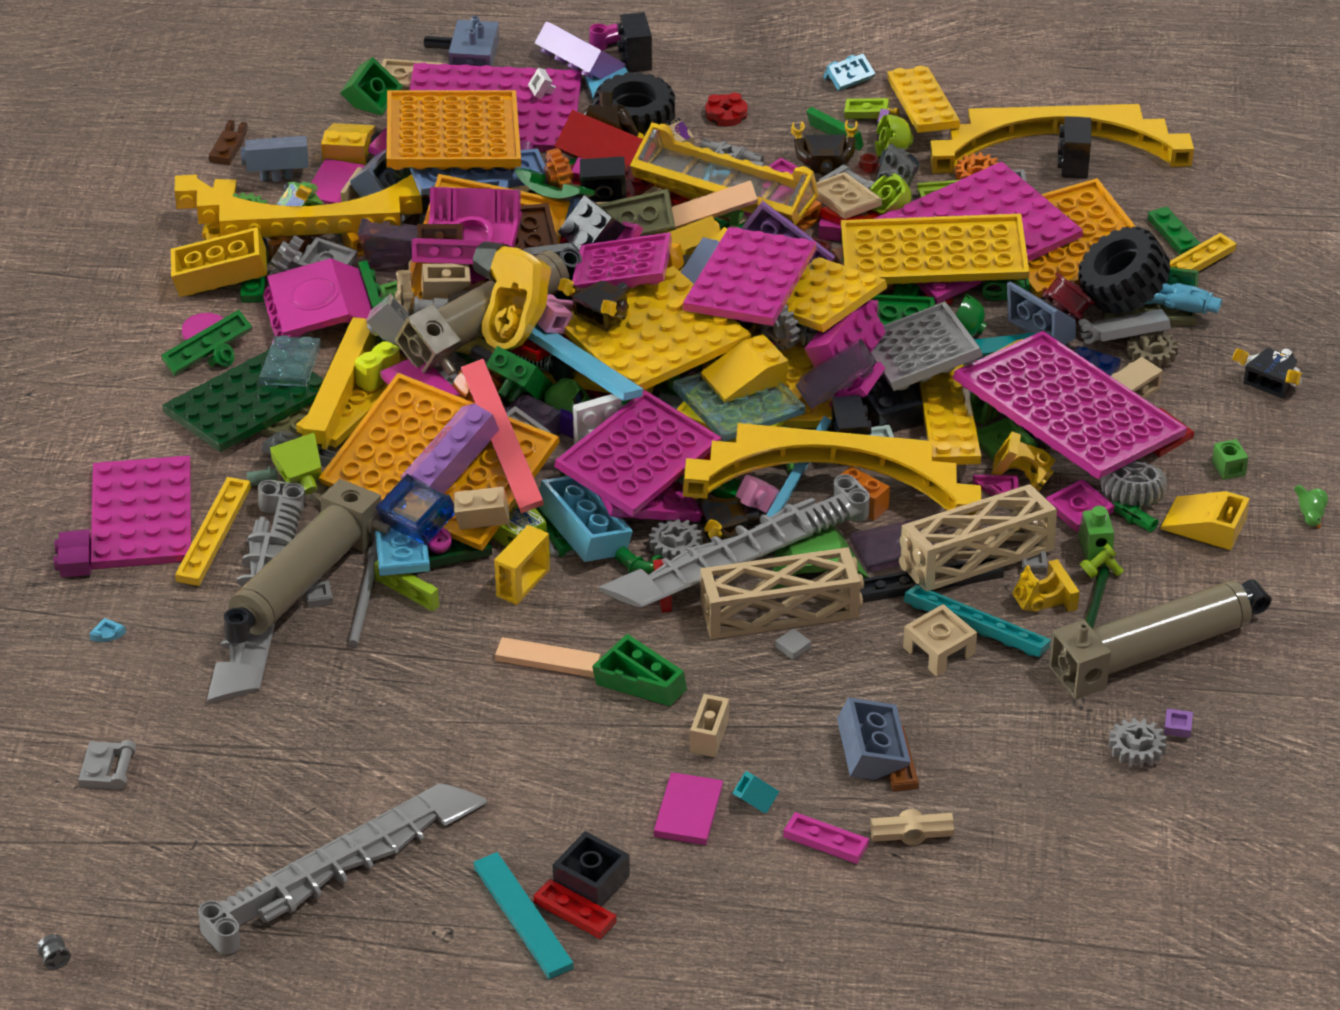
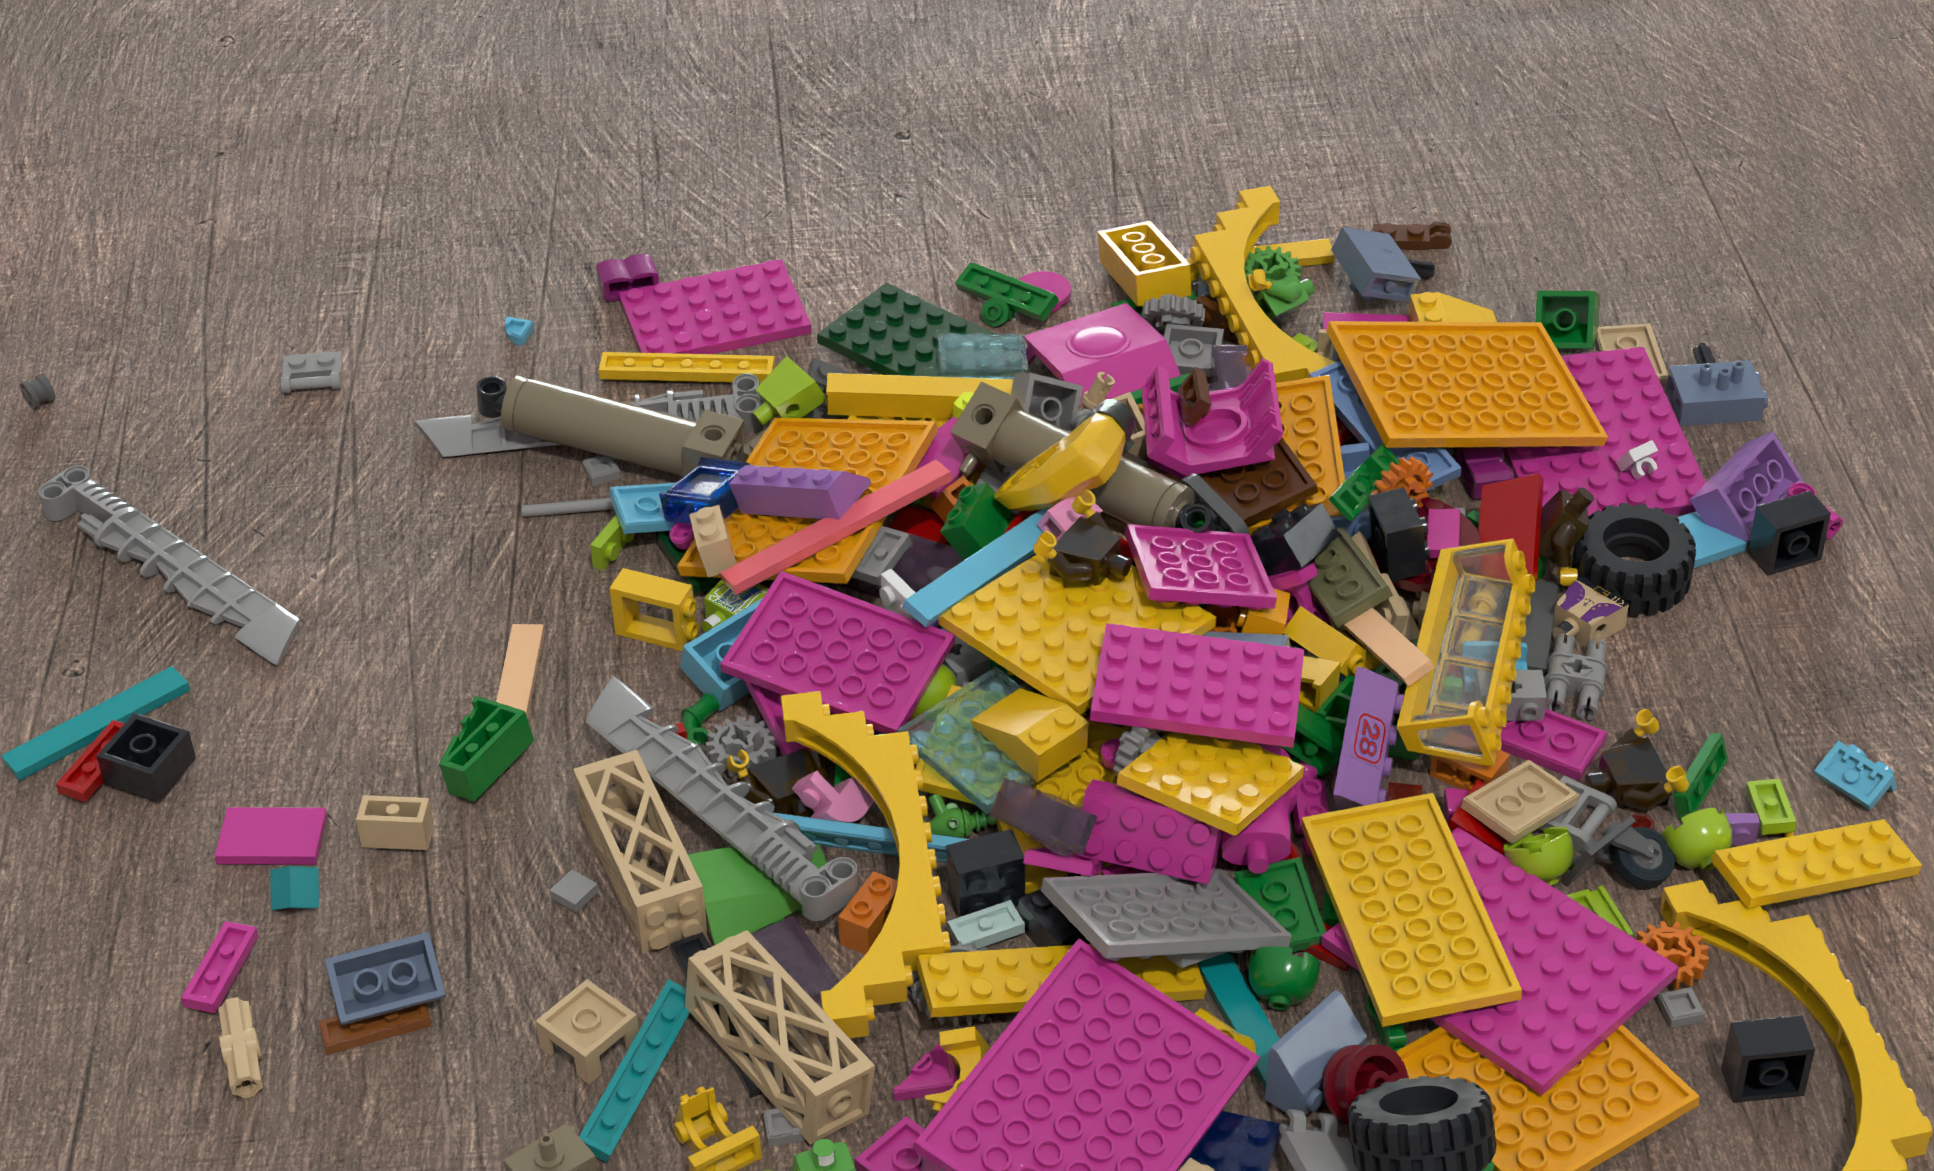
camera: 80 degrees right, 0 degrees up
(718, 104) = (1706, 647): red plate -> none

